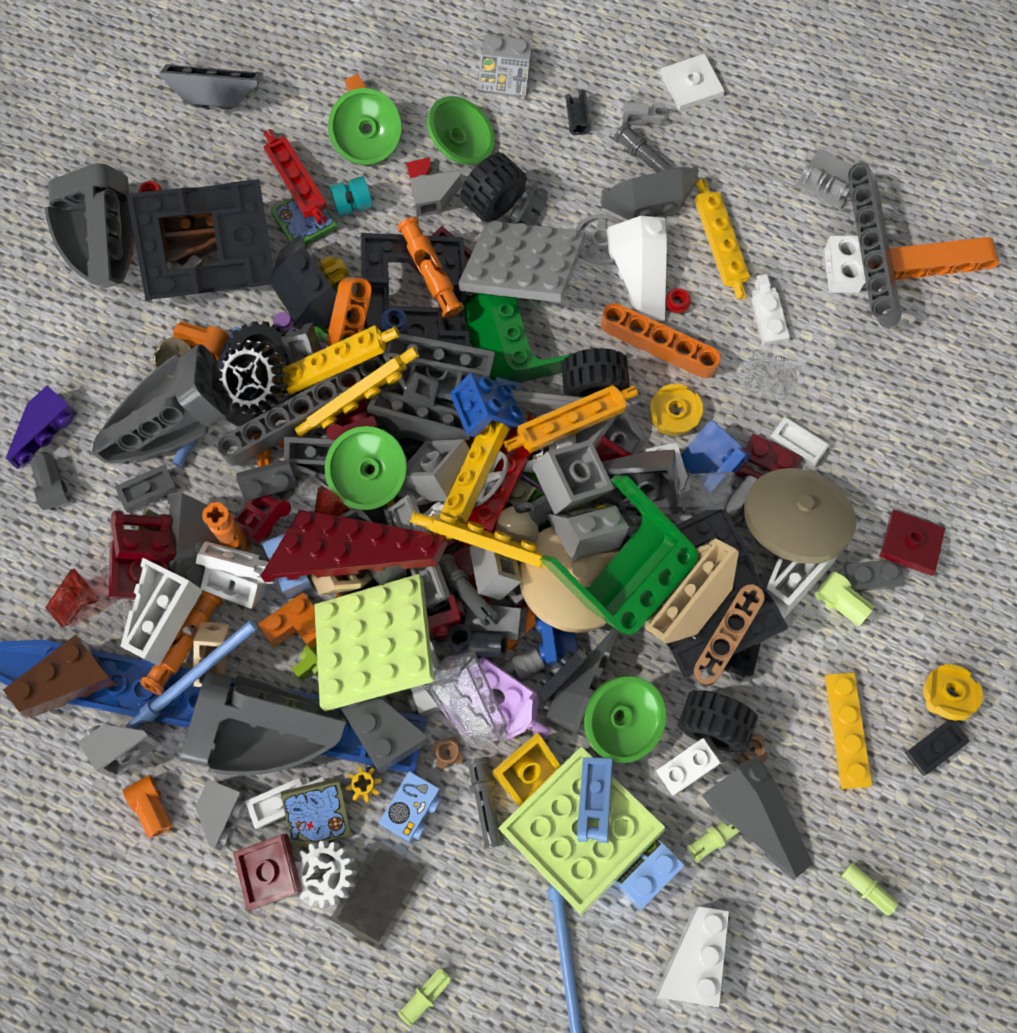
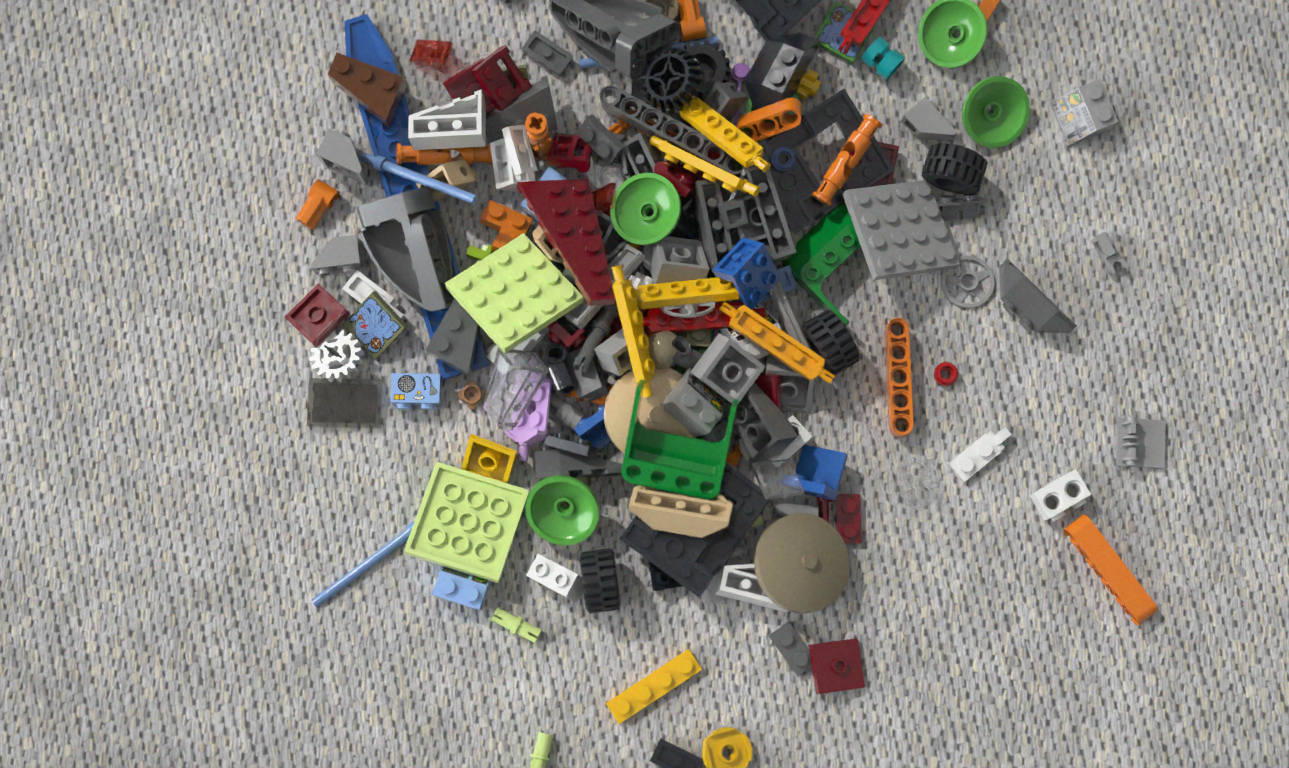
camera: 60 degrees right, 10 degrees up
(371, 788) = (409, 352): yellow gear -> none
(419, 167) = (944, 97): red tile -> none
(424, 997) = (292, 474): yellowish green axle -> none
(482, 788) = (459, 434): dark grey pin -> none
(578, 114) = (1075, 199): black hinge -> none
(595, 799) = (491, 519): medium blue plate -> none
(638, 147) = (1073, 267): dark grey pin -> none
(641, 257) = (964, 323): white wedge -> none
(685, 399) = (847, 408): yellow plate -> none
(692, 82) = (1168, 278): white plate -> none
(698, 960) = (417, 655): white wedge -> none
(722, 239) = (1026, 380): yellow plate -> none
(726, 633) = (667, 553): medium nougat beam -> none
(756, 808) = (550, 644): dark grey wedge -> none
(759, 750) = (597, 627): medium nougat plate -> none
(799, 441) = (875, 535): white tile -> none
(838, 594) = (759, 628): yellowish green piece -> none
(878, 253) = (1083, 519): dark grey beam -> none

